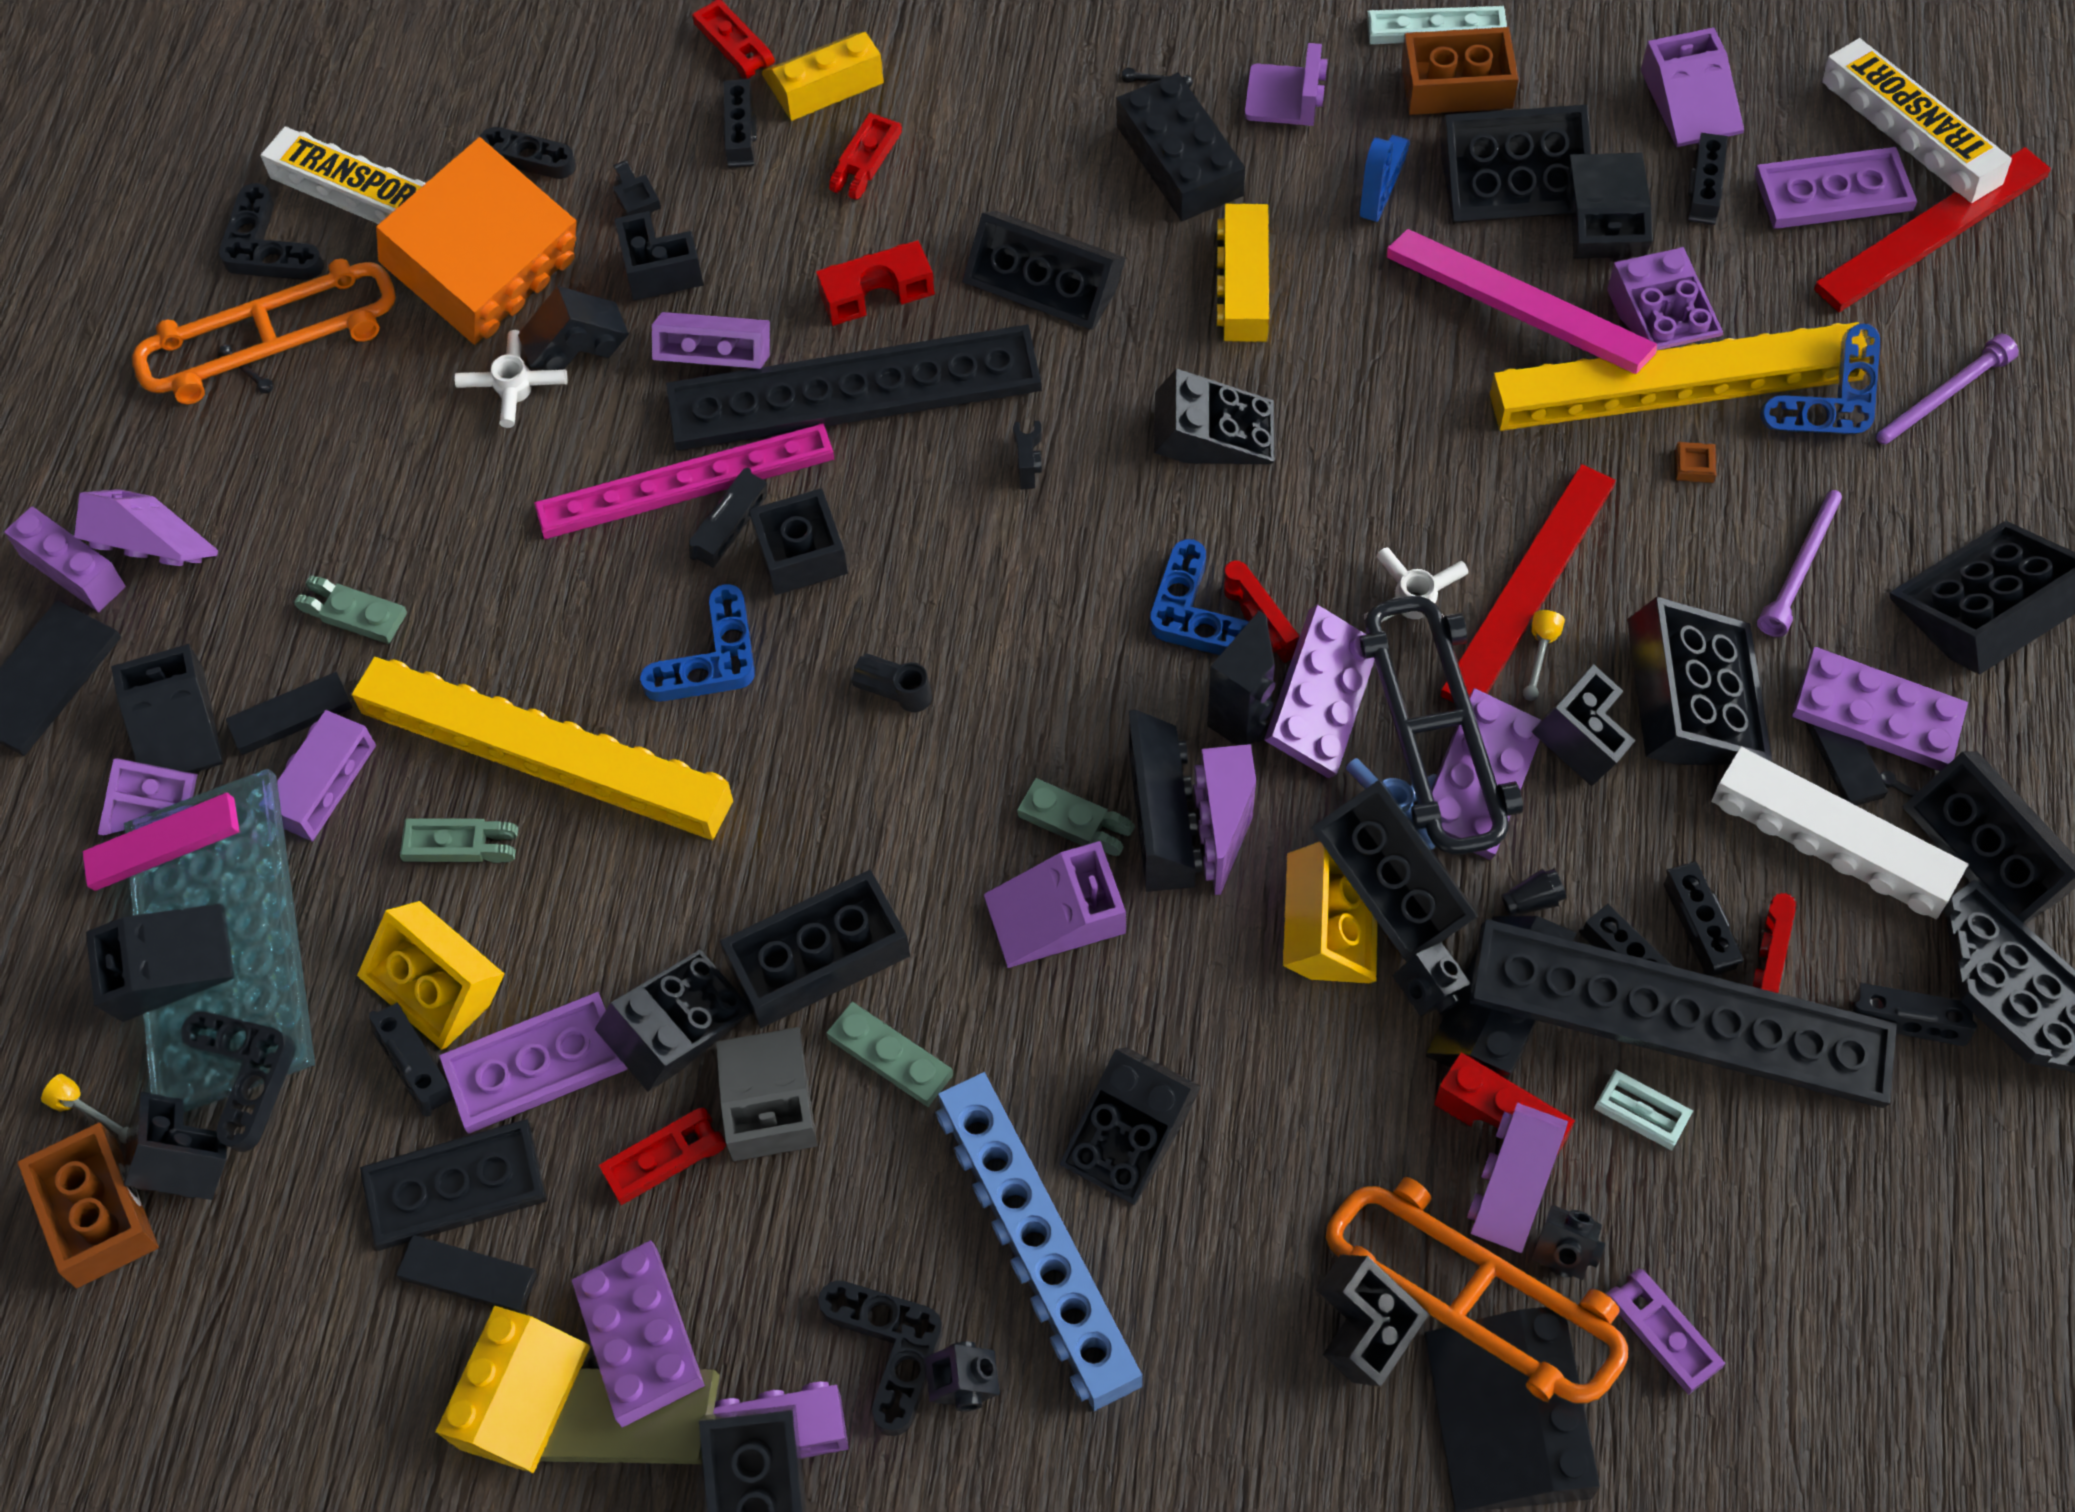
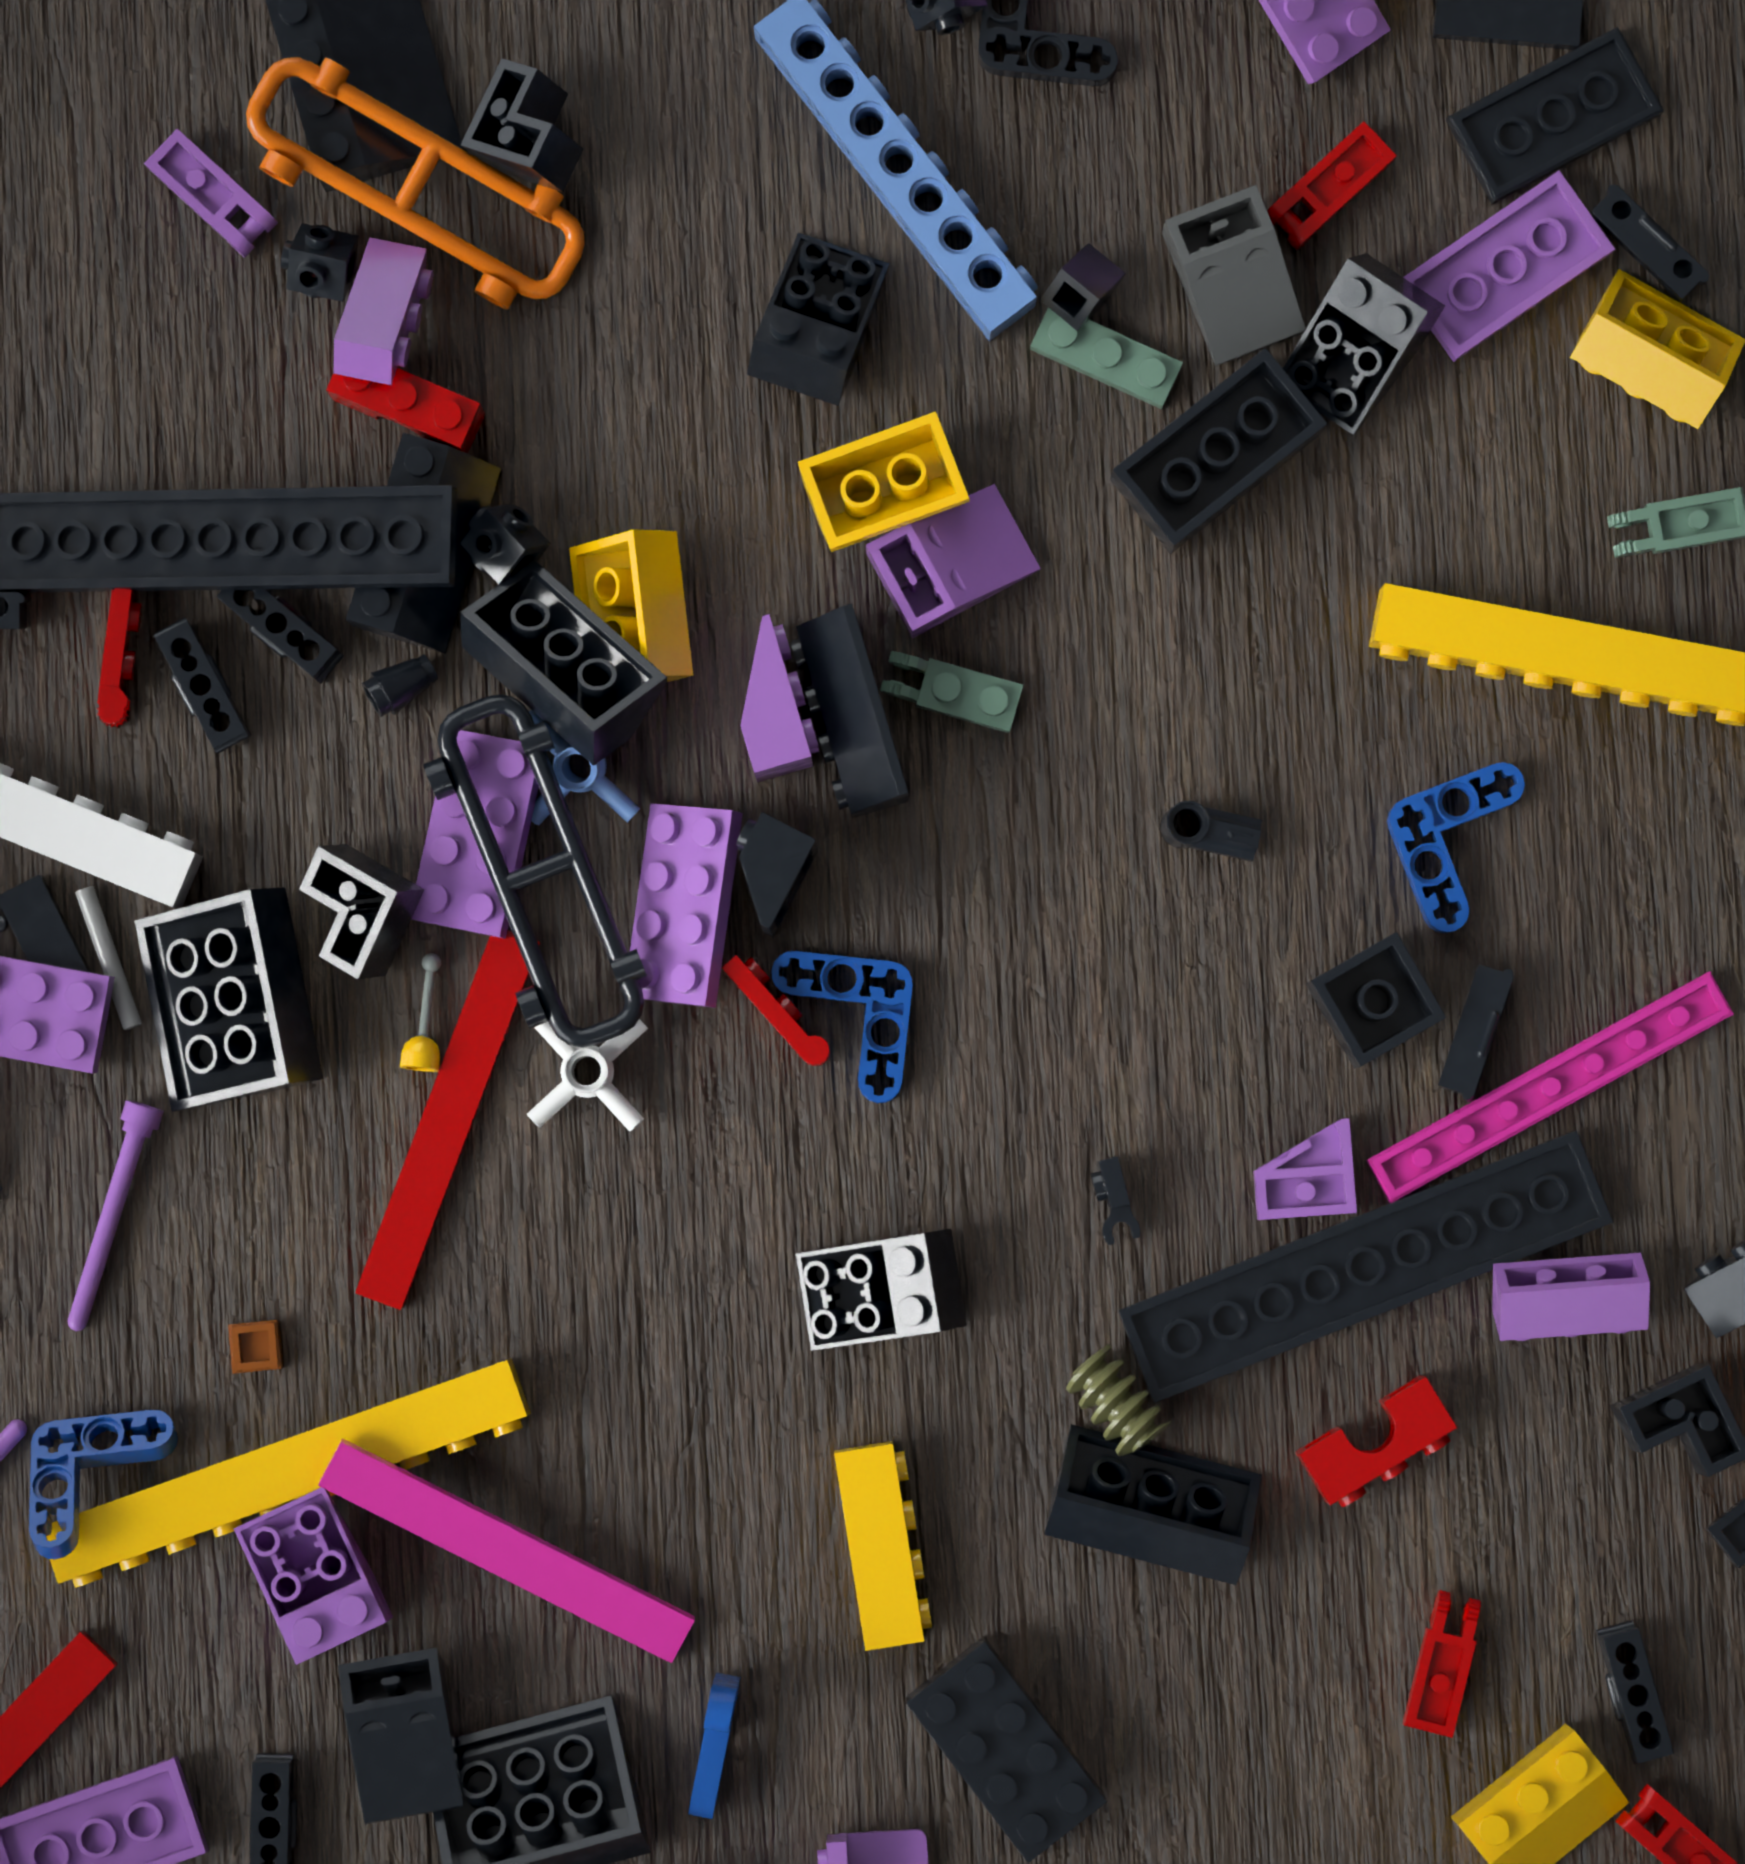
camera: 170 degrees right, 25 degrees up
(879, 446) = (1309, 1178): none -> medium lavender wing
(896, 1100) = (1082, 286): none -> black brick
(1055, 325) = (1115, 1402): none -> olive piece
(1101, 962) = (883, 482): none -> yellow slope
(1637, 1123) = (290, 460): light aqua tile -> none
(1794, 733) = (108, 957): none -> light grey bar

